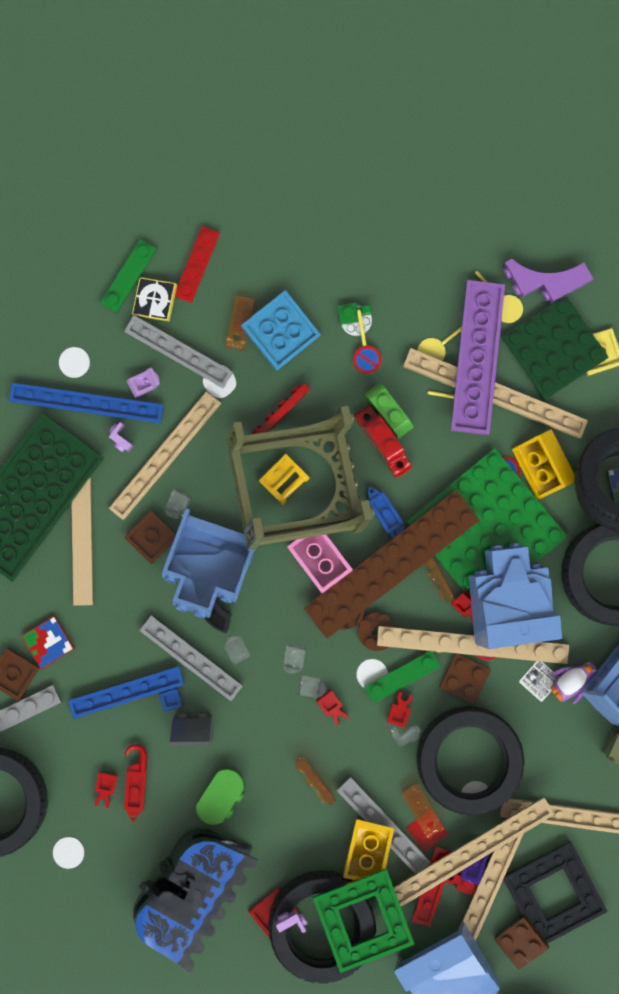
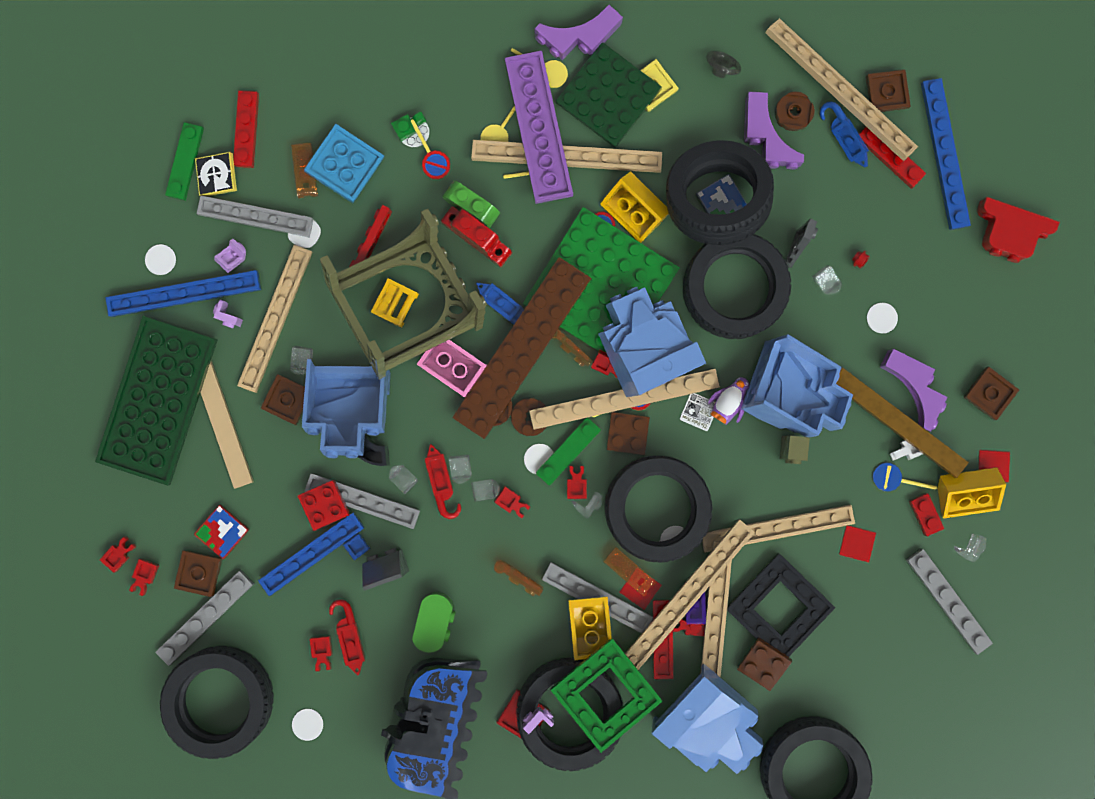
camera: 20 degrees left, 0 degrees up
(154, 650) = (323, 505): none -> red plate
(271, 665) = (440, 481): none -> red plate

